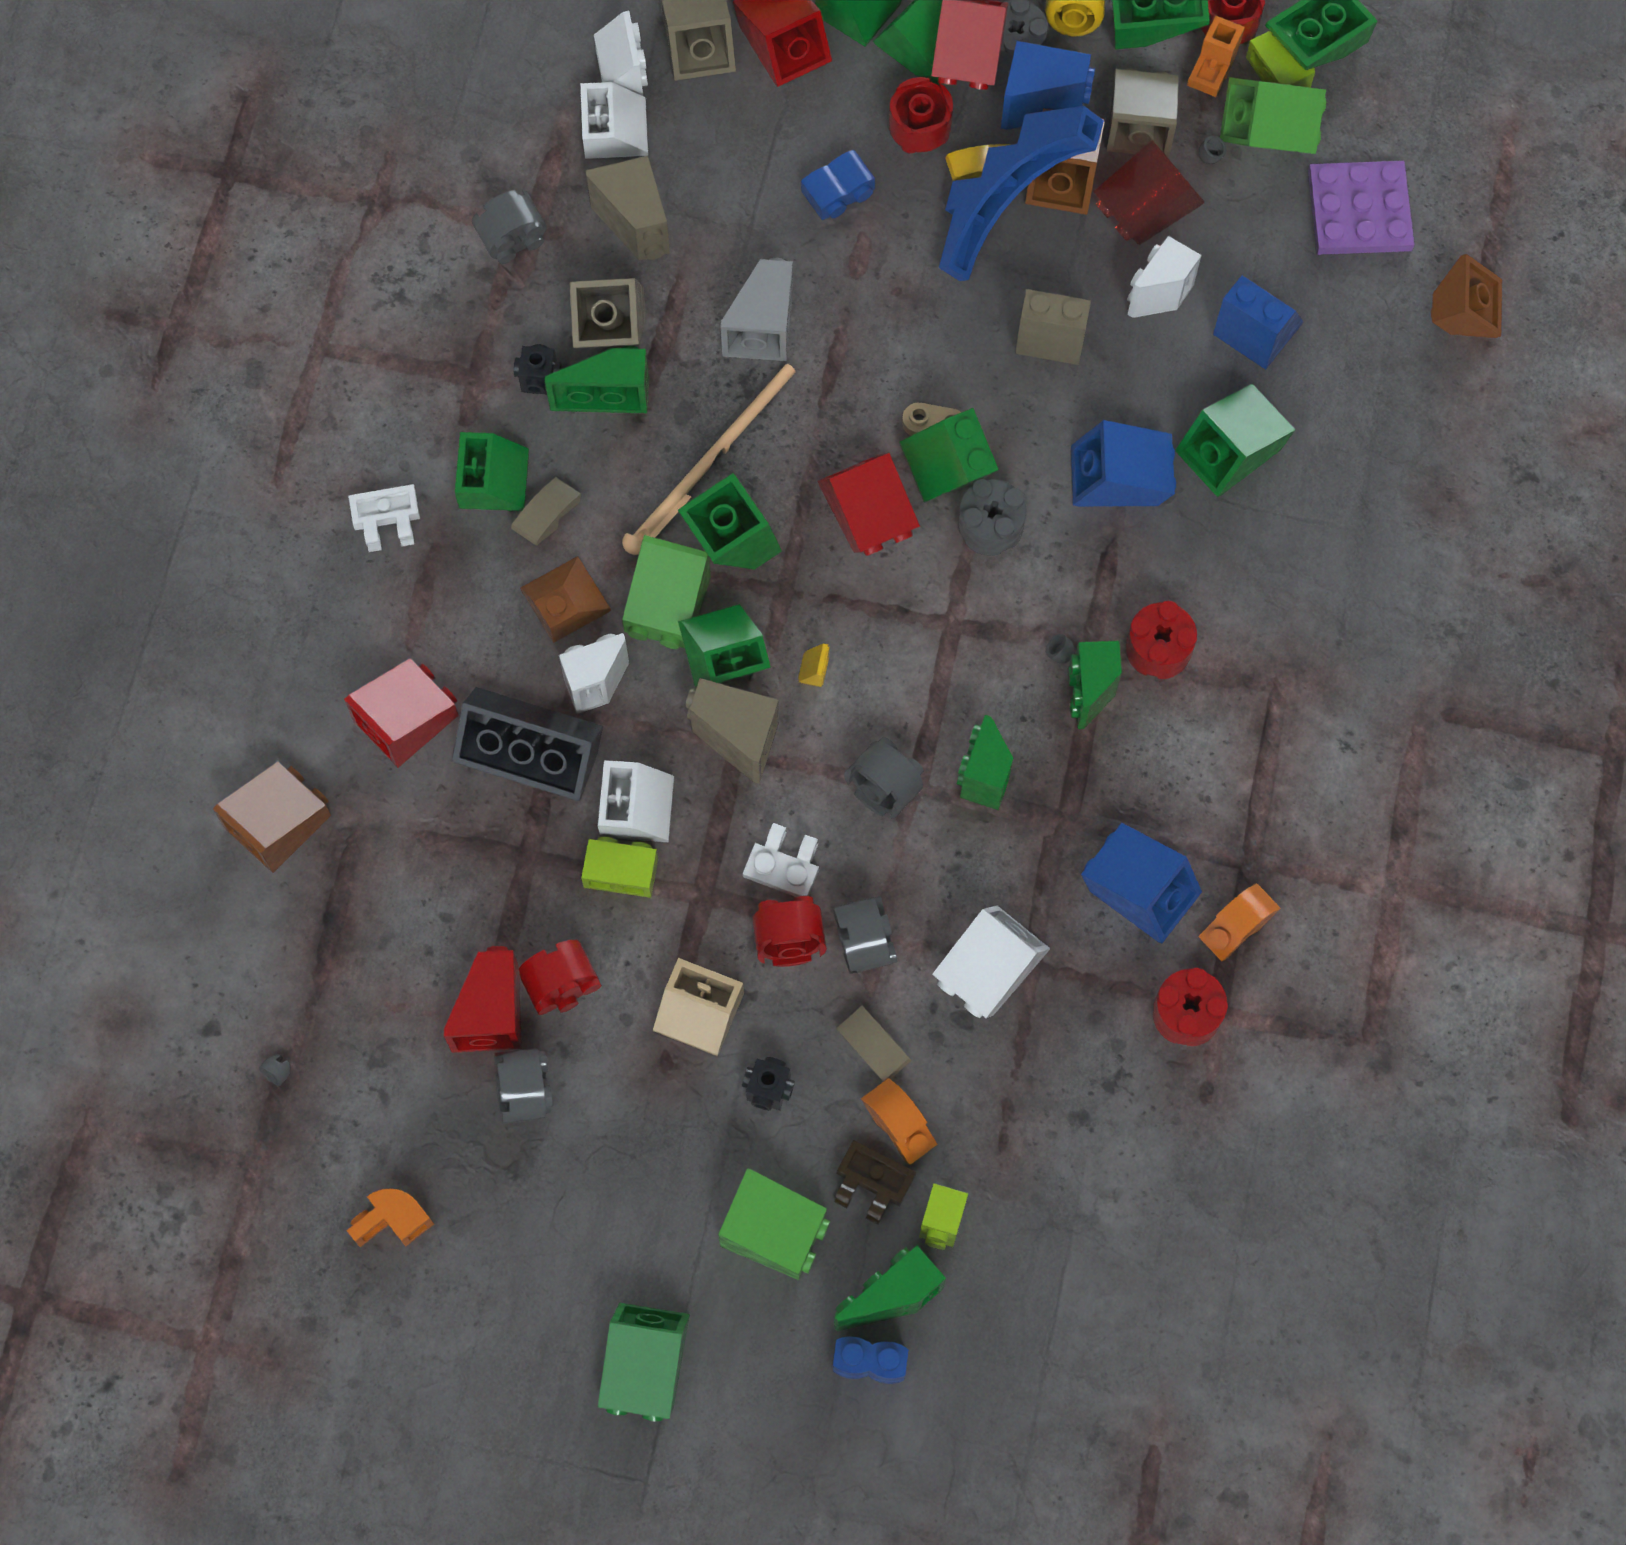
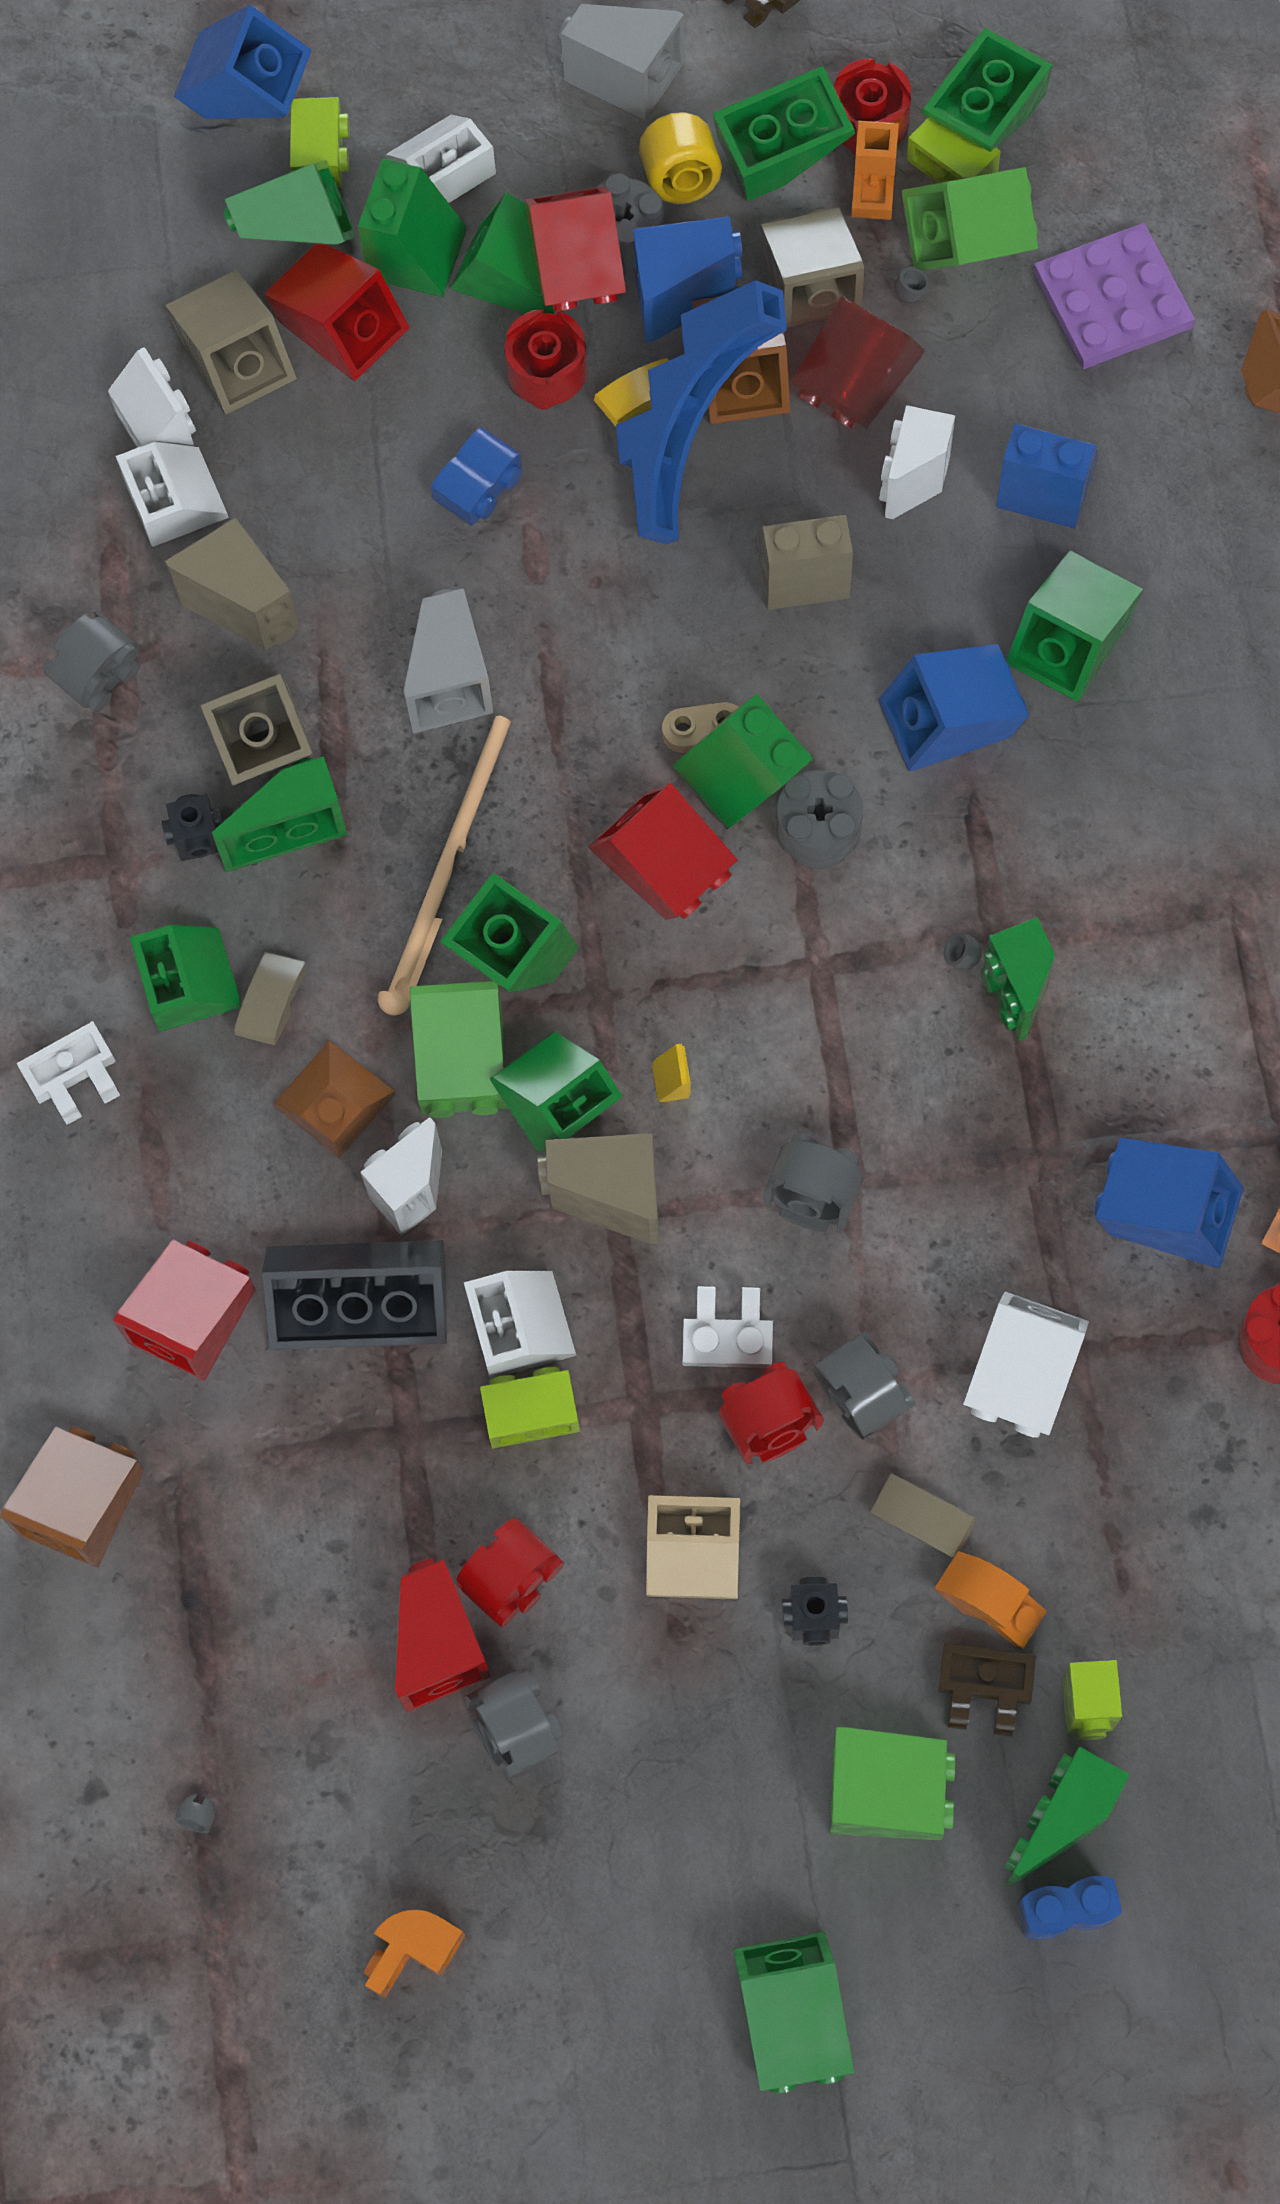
camera: 15 degrees left, 0 degrees up
(988, 769) = (935, 1125): green slope -> none
(1169, 624) = (1102, 896): red brick -> none

